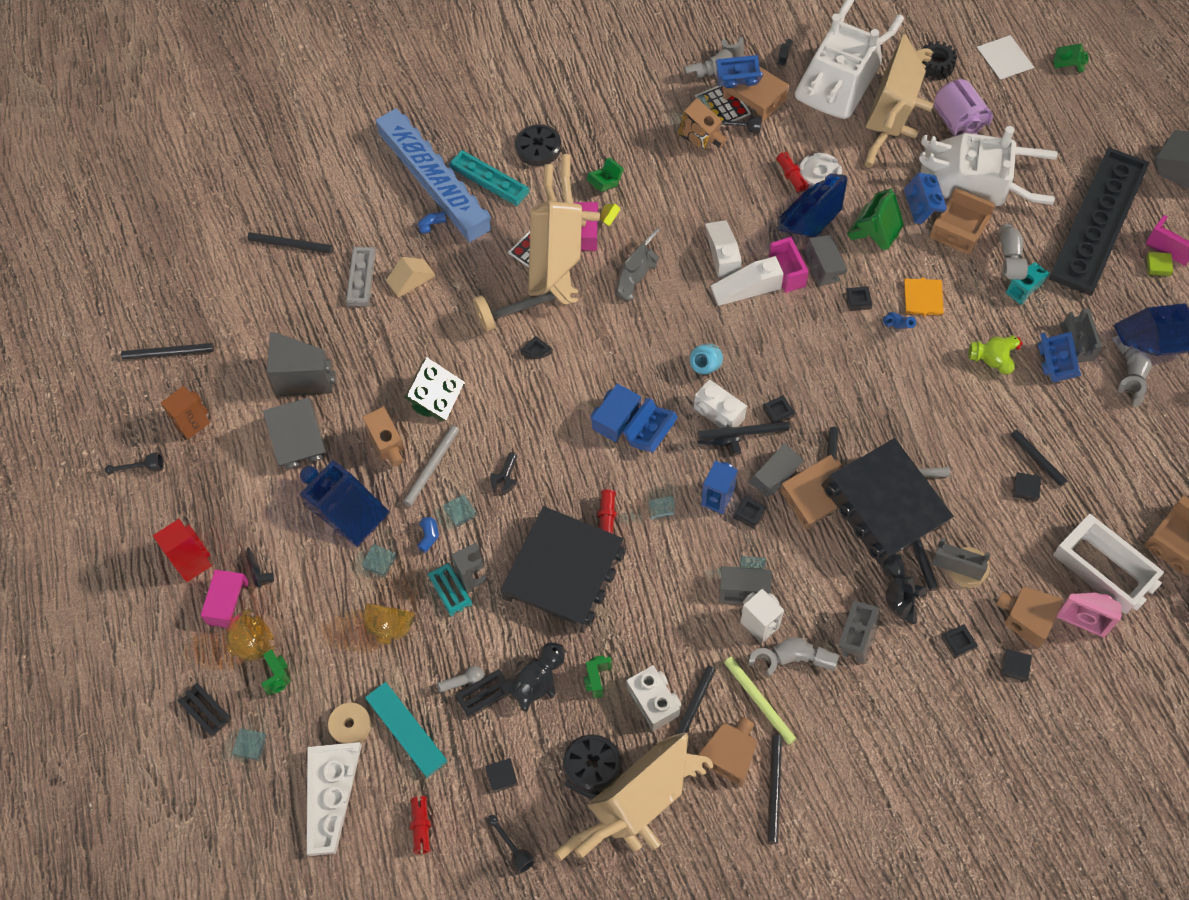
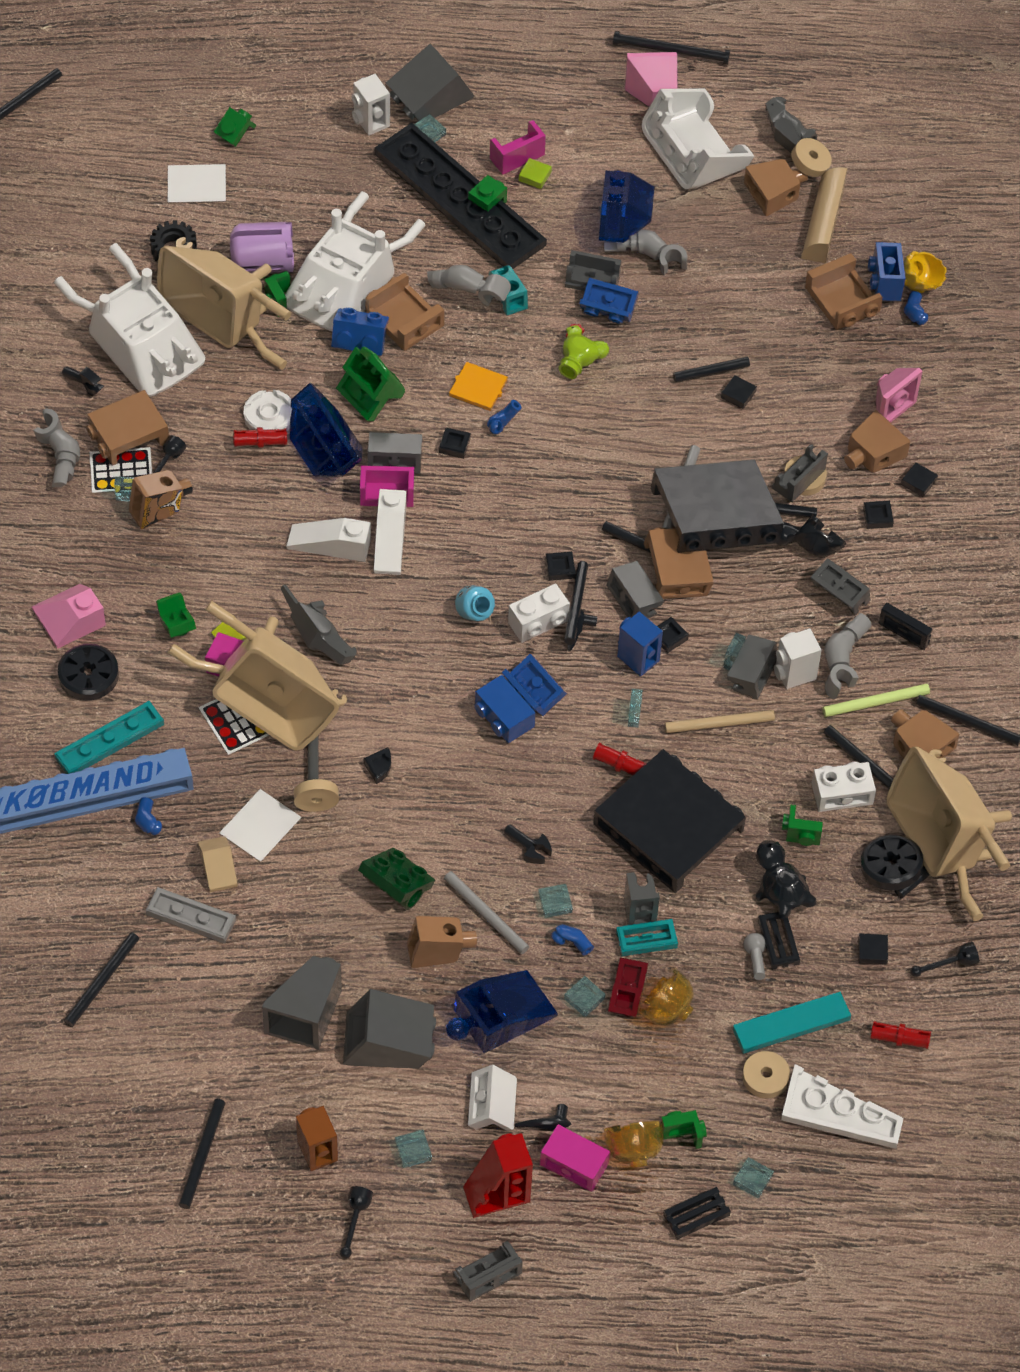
camera: 75 degrees left, 5 degrees down
(113, 569) = (489, 1271): none -> dark grey hinge
(208, 484) = (413, 1148): none -> clear light blue tile
(263, 525) = (492, 1098): none -> white panel
(396, 591) = (628, 987): none -> dark red slope
(454, 293) = (260, 825): none -> white sticker
(582, 119) = (70, 614): none -> bright pink slope
(681, 579) = (719, 721): none -> tan bar
(738, 71) = (108, 427): blue bracket -> none
(845, 699) = (905, 626): none -> black tile
(931, 129) = (276, 286): none -> green bracket
(1113, 235) = (488, 193): none -> green bracket
(1120, 553) = (841, 348): white piece -> none
(1145, 126) = (371, 104): none -> white brick
(1154, 179) = (431, 128): none -> clear light blue tile

